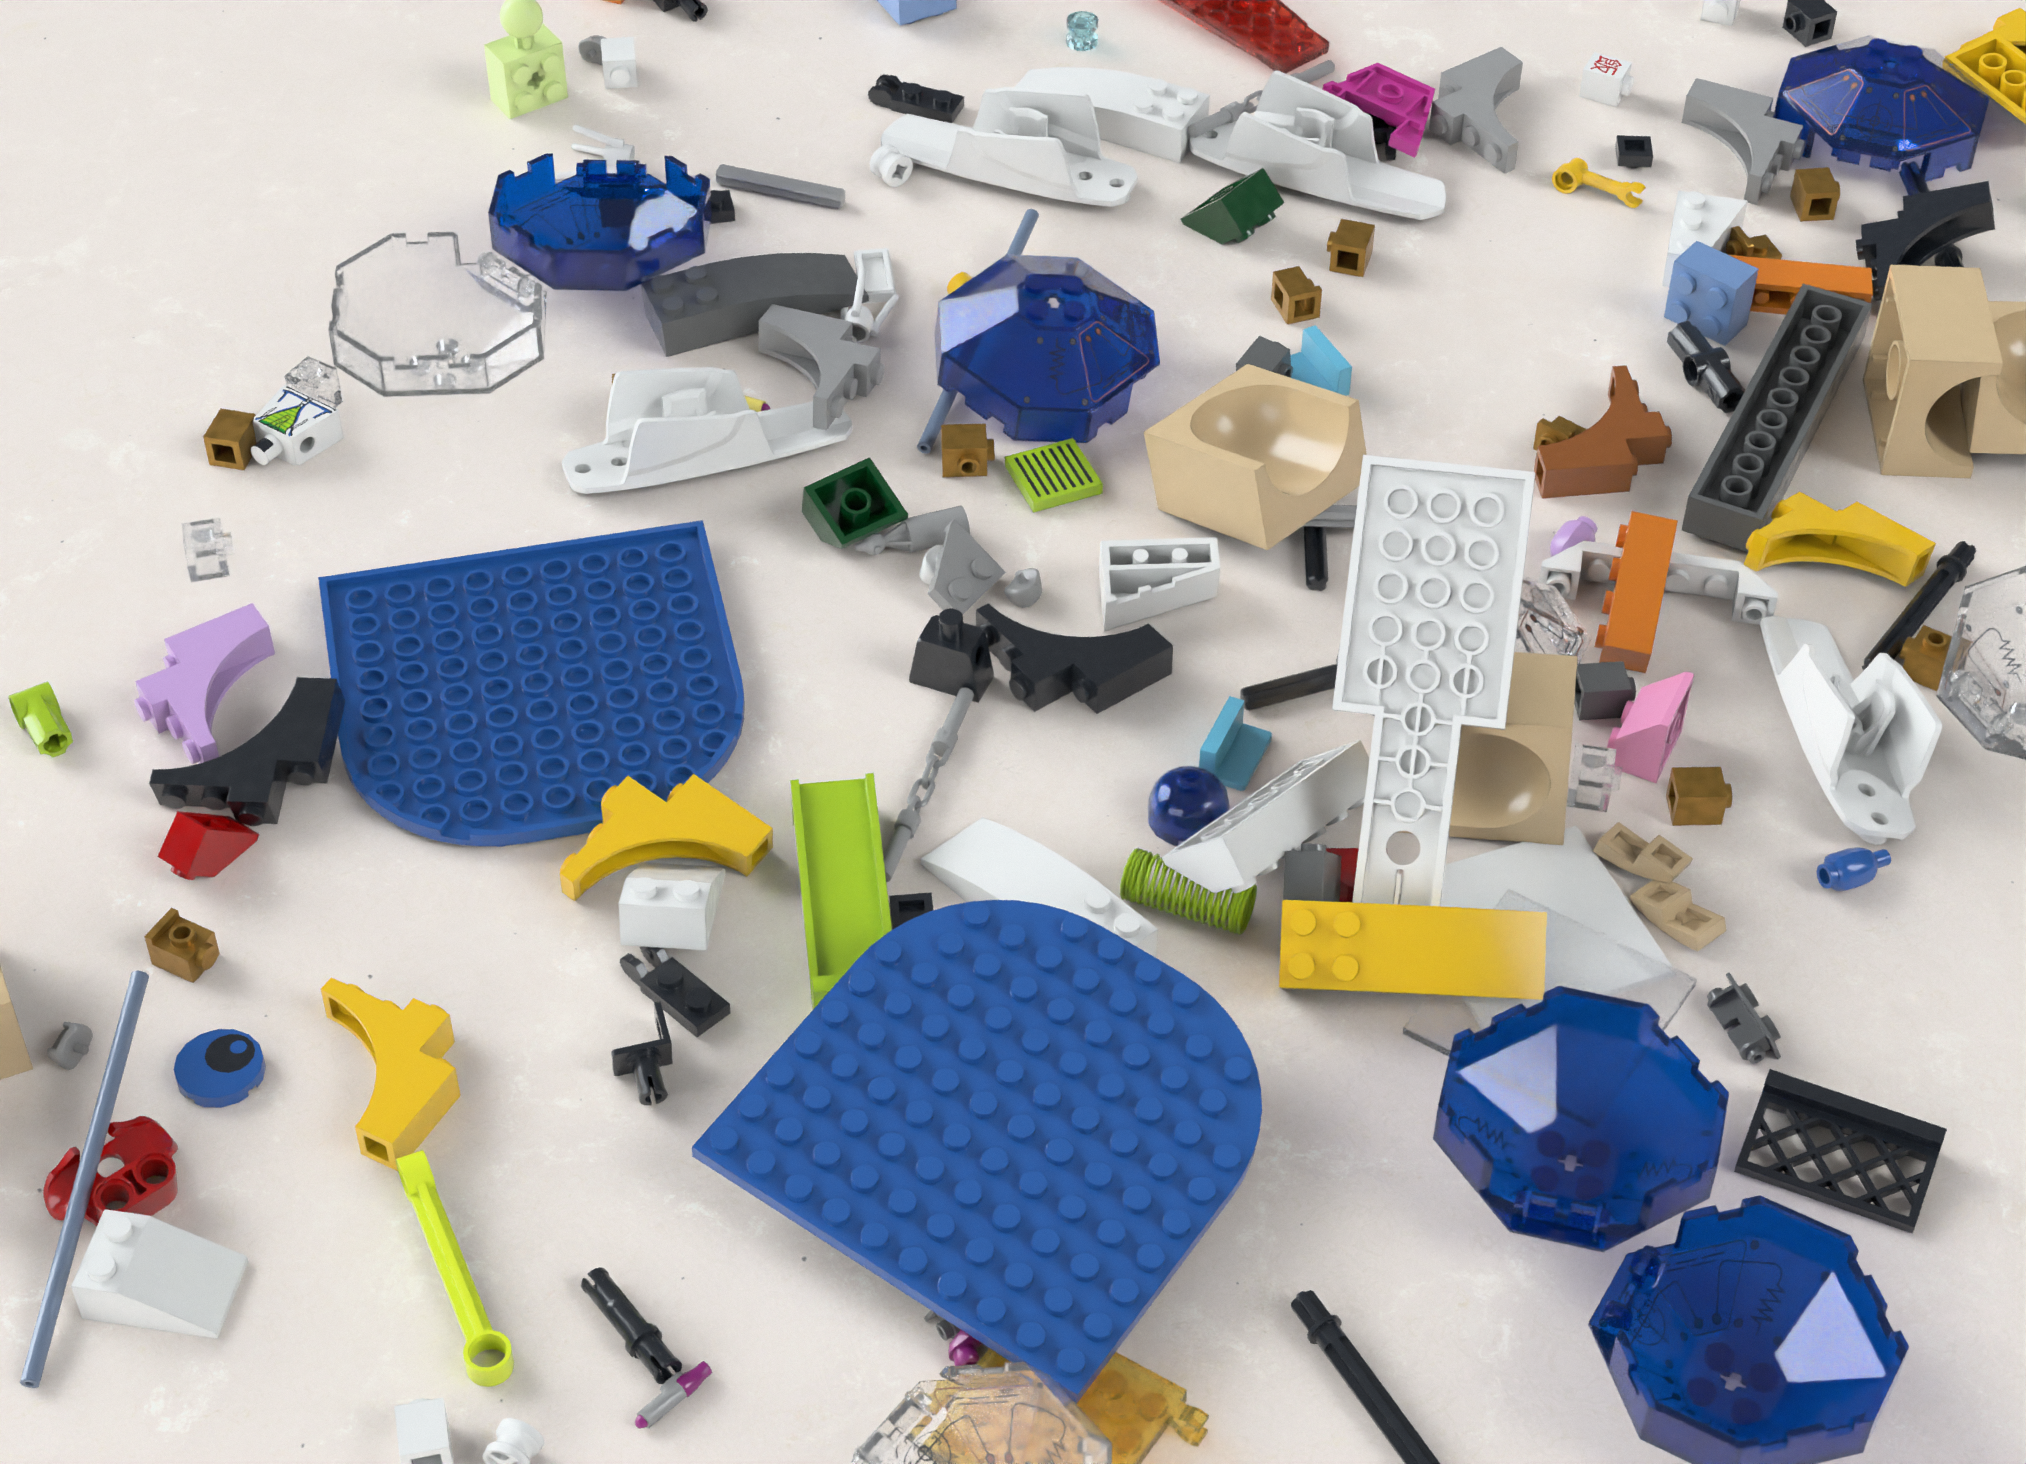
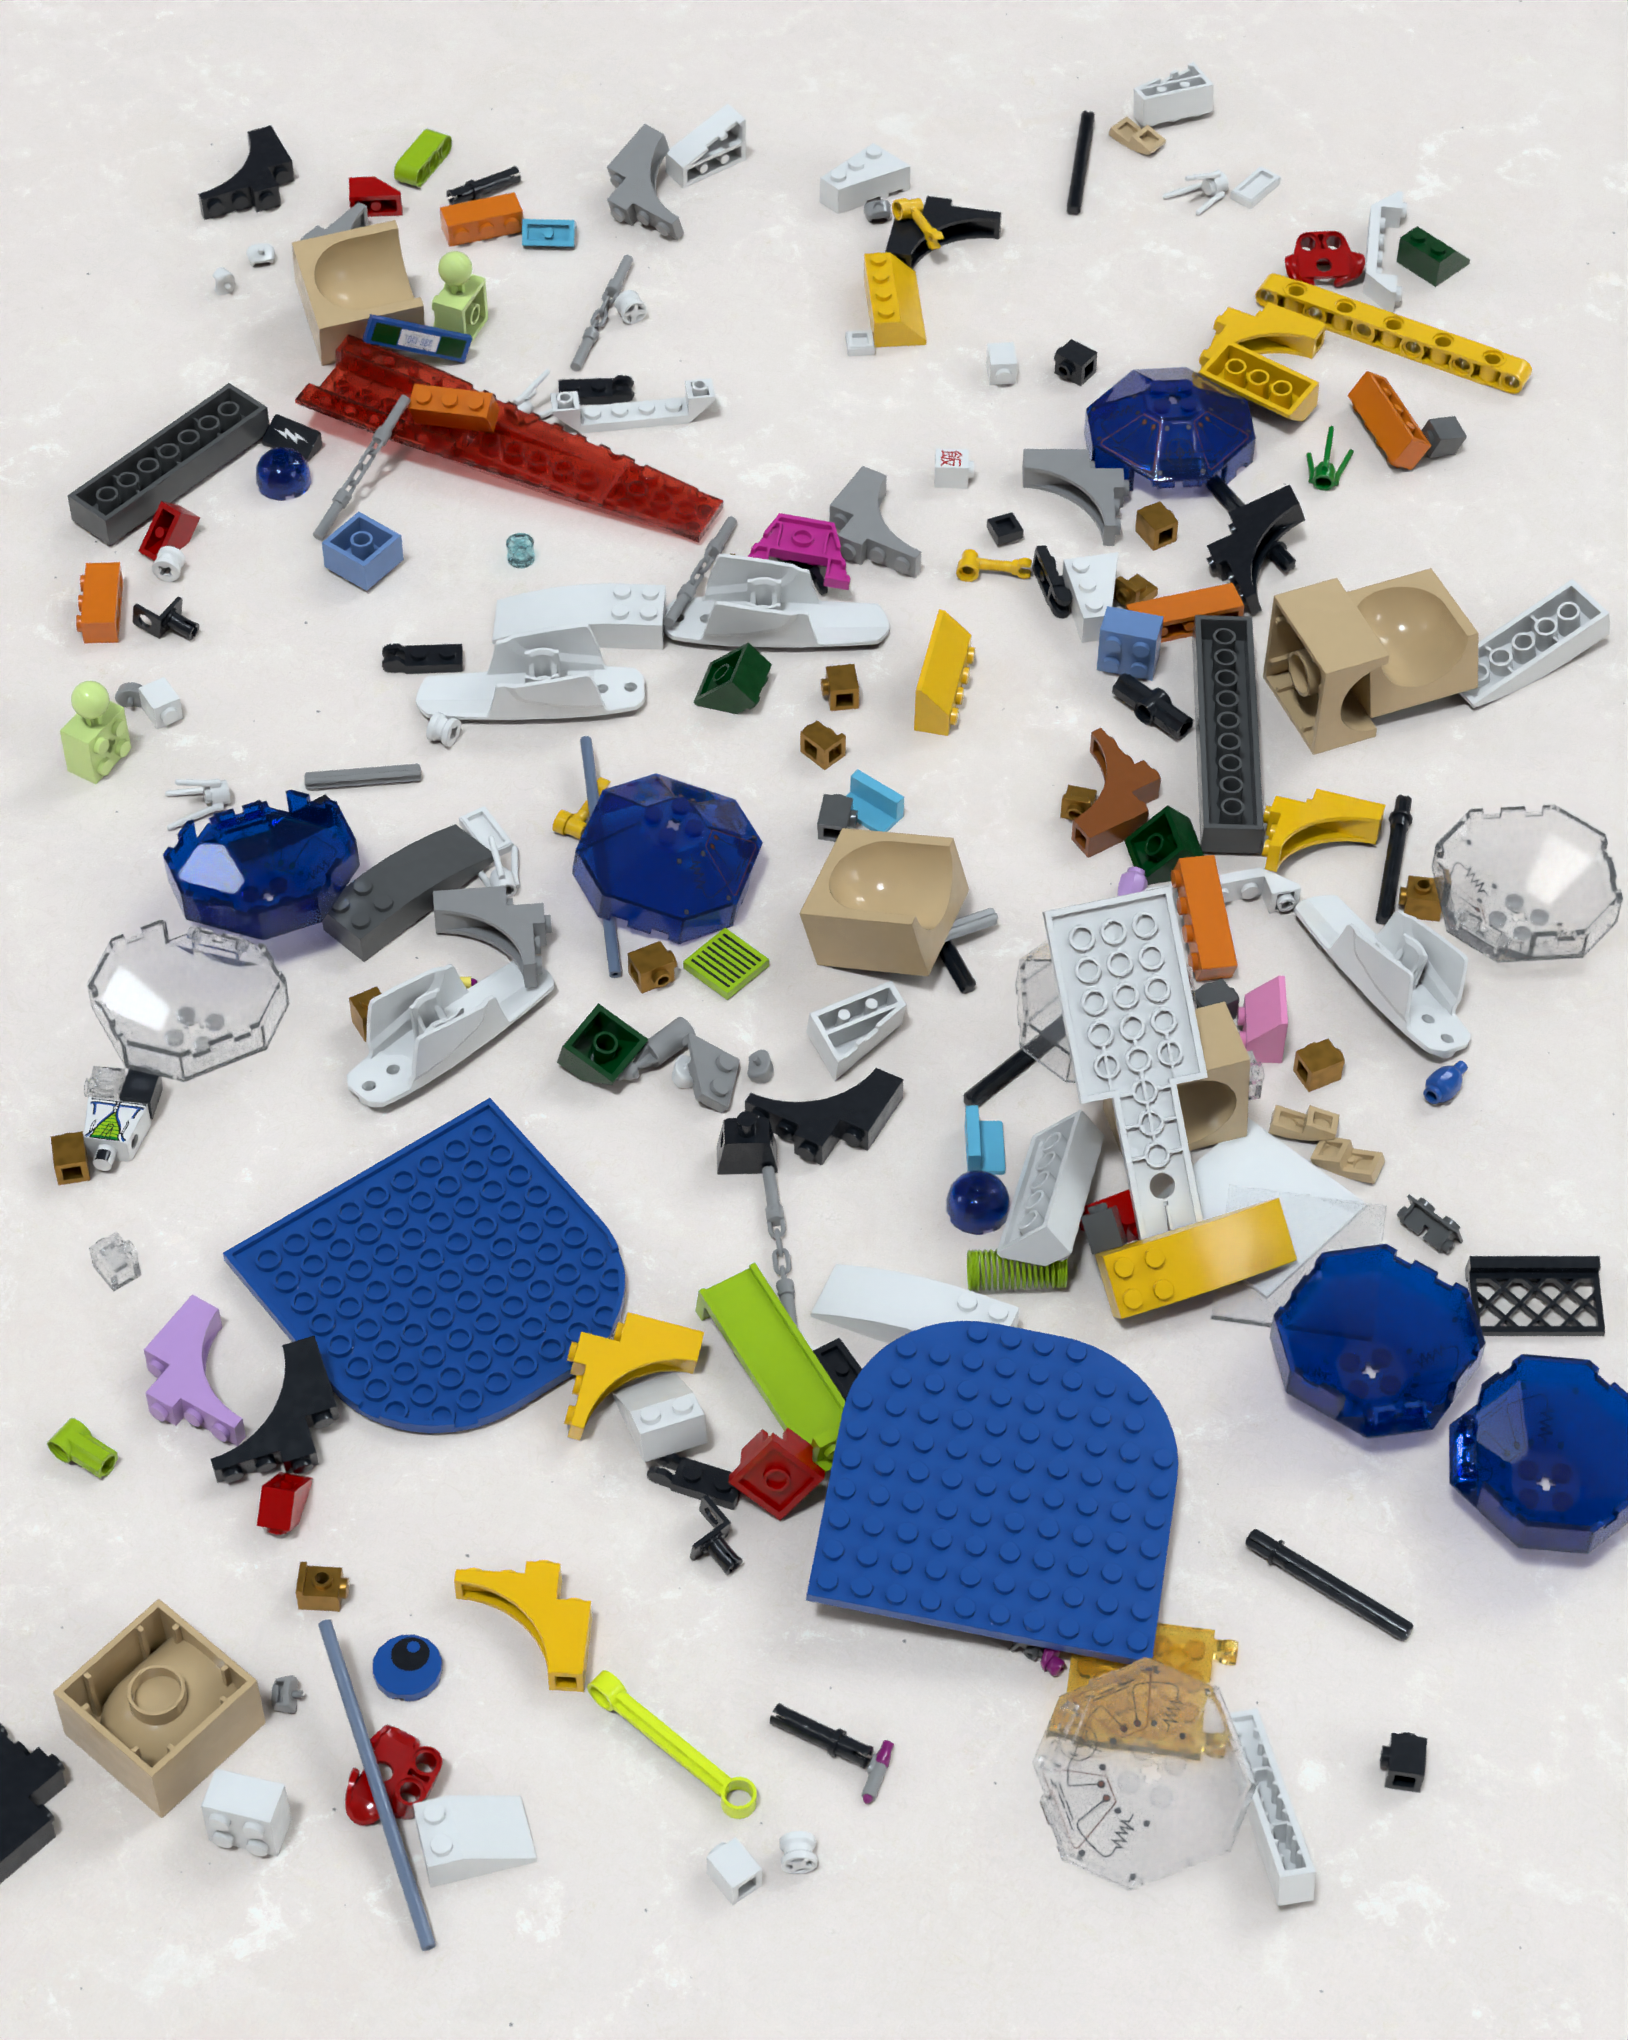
camera: 25 degrees left, 5 degrees up
(348, 396) = (142, 1088): none -> black brick
(755, 1004) = (777, 1471): none -> red panel
(1470, 263) = (942, 676): none -> yellow slope
(1645, 491) = (1161, 843): none -> dark green slope
(1657, 215) = (1051, 583): none -> black hinge

